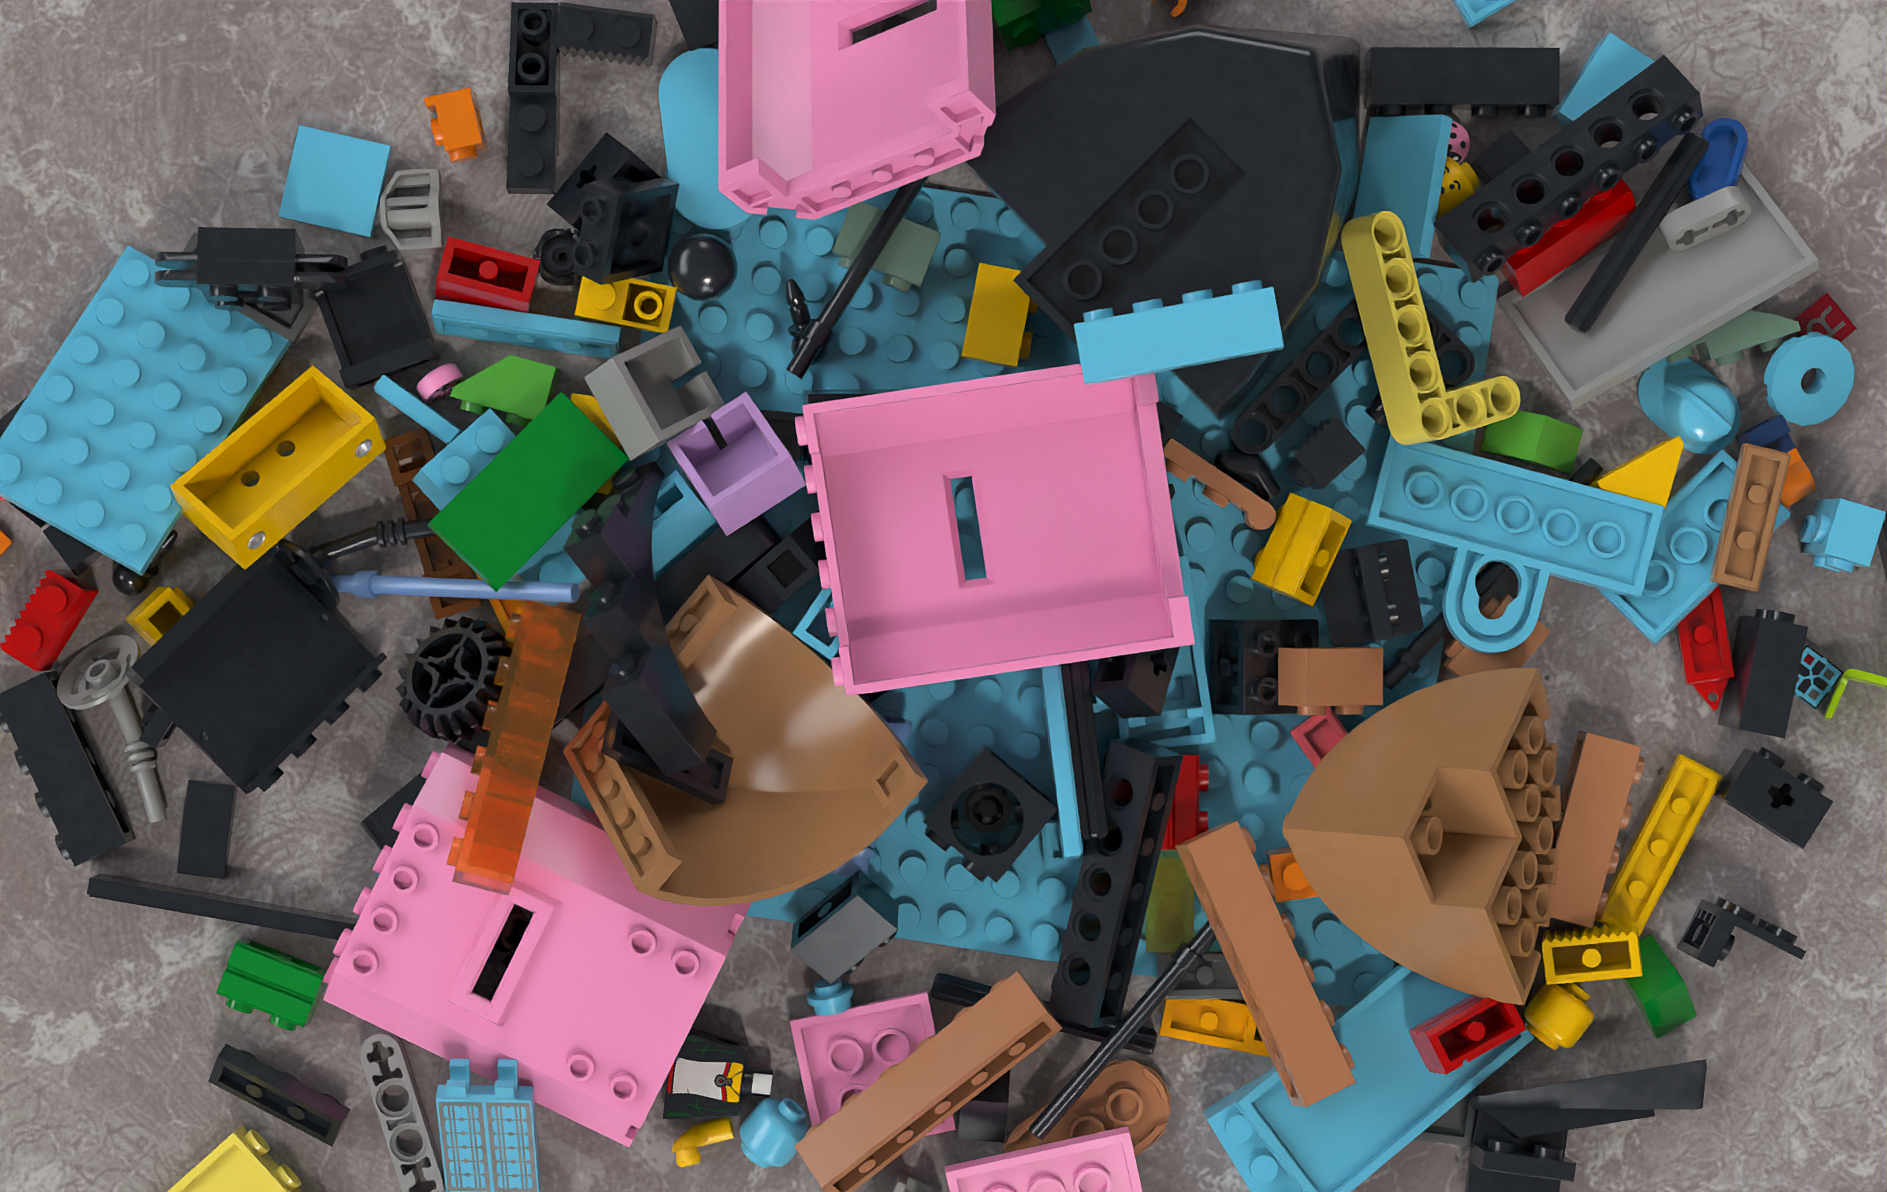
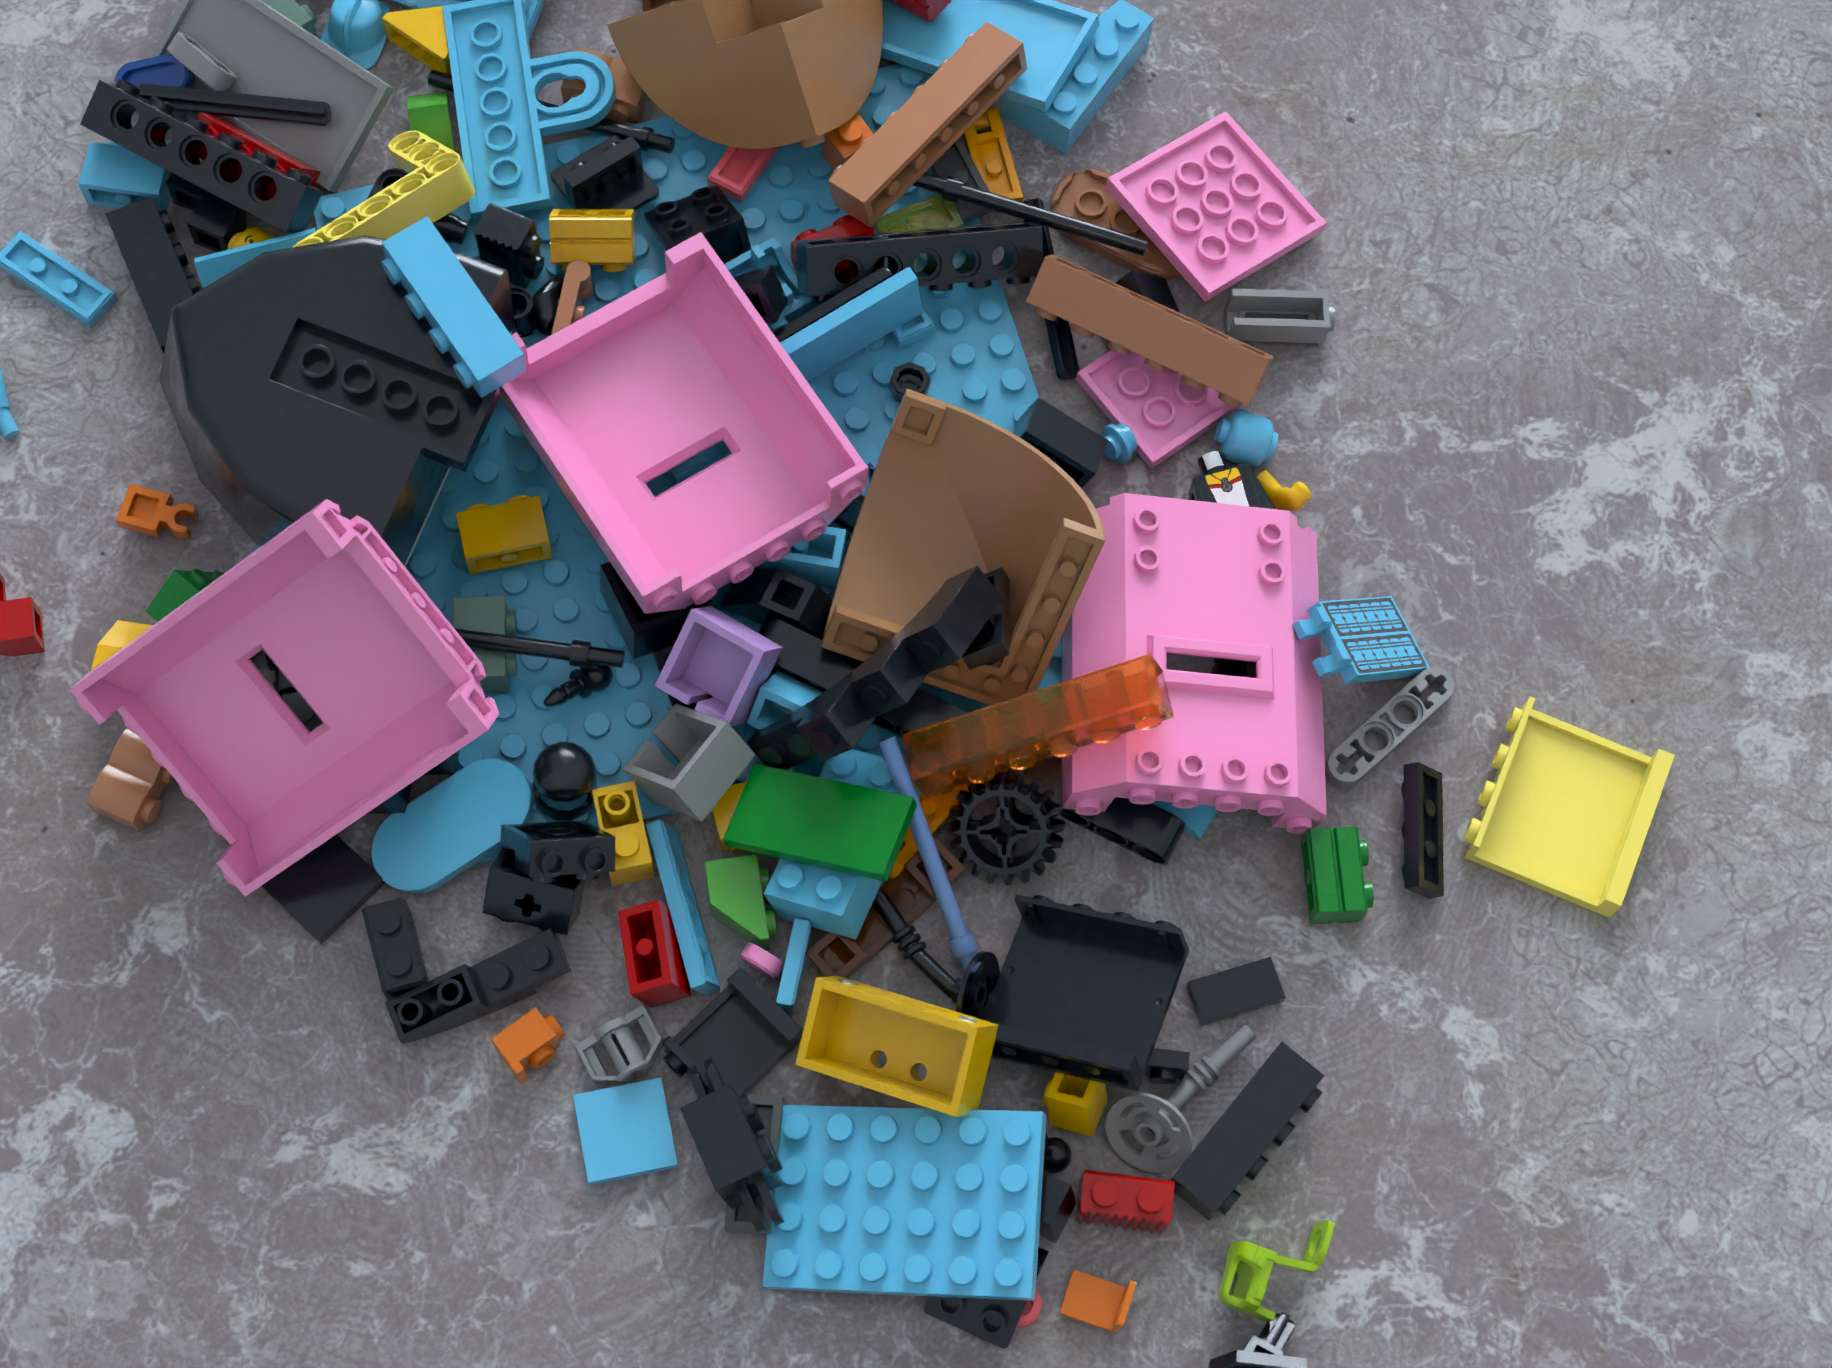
camera: 120 degrees left, 20 degrees down
(219, 906) = (1292, 939): black tile -> none
(548, 251) = (596, 898): black plate -> none
(991, 858) = (904, 339): black brick -> none
(1330, 678) = (685, 174): nougat brick -> none

